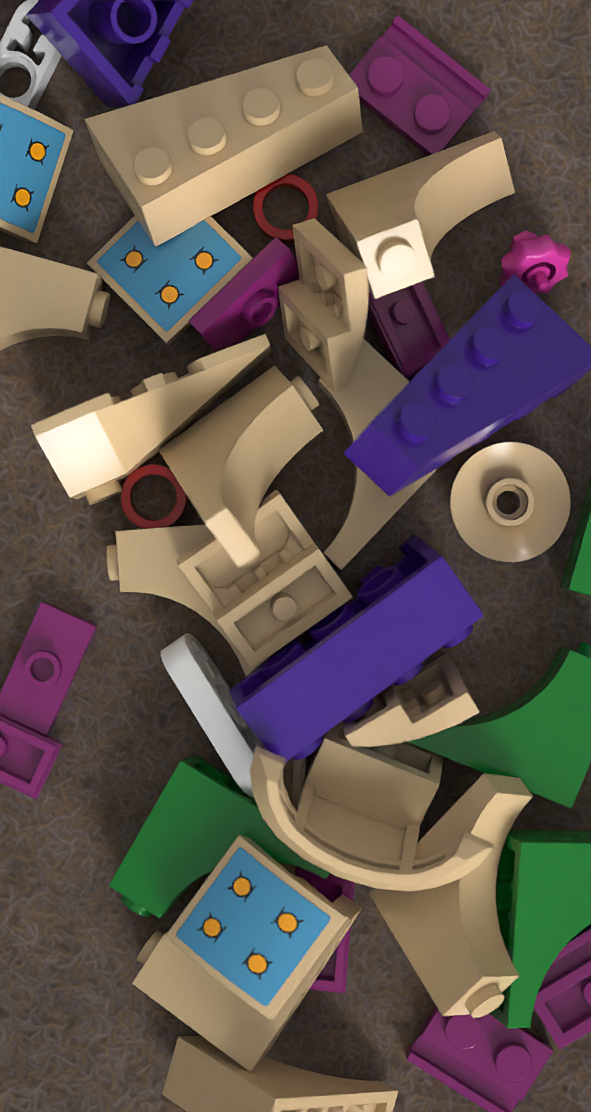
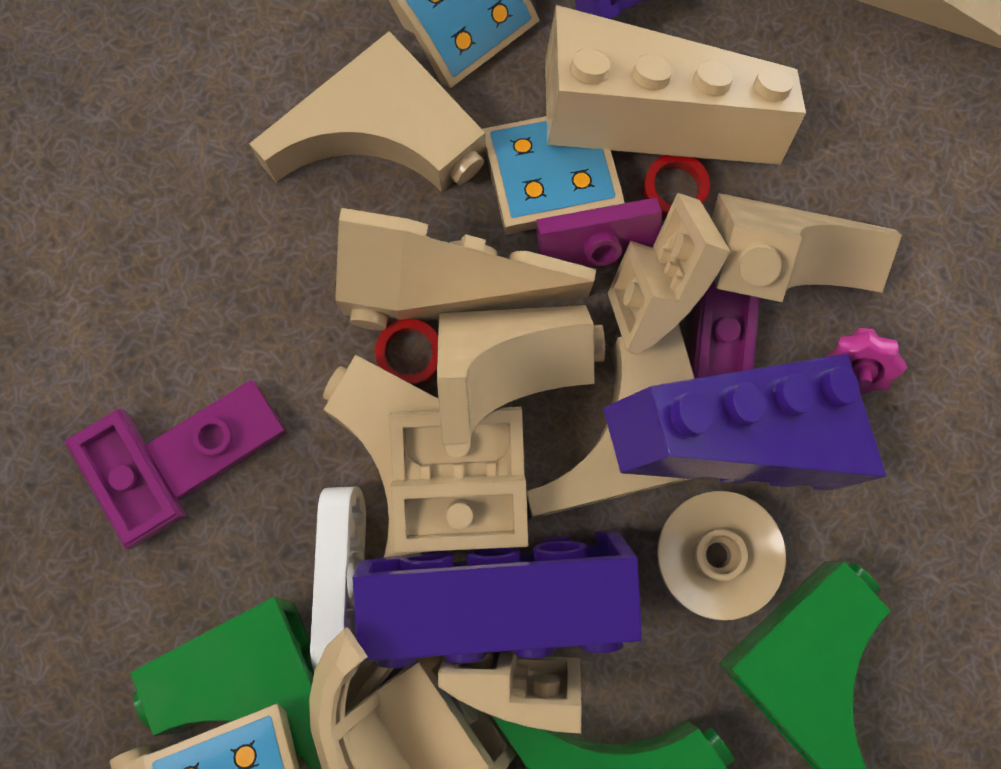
camera: 30 degrees right, 10 degrees down
(417, 88) = (848, 159): magenta plate -> none

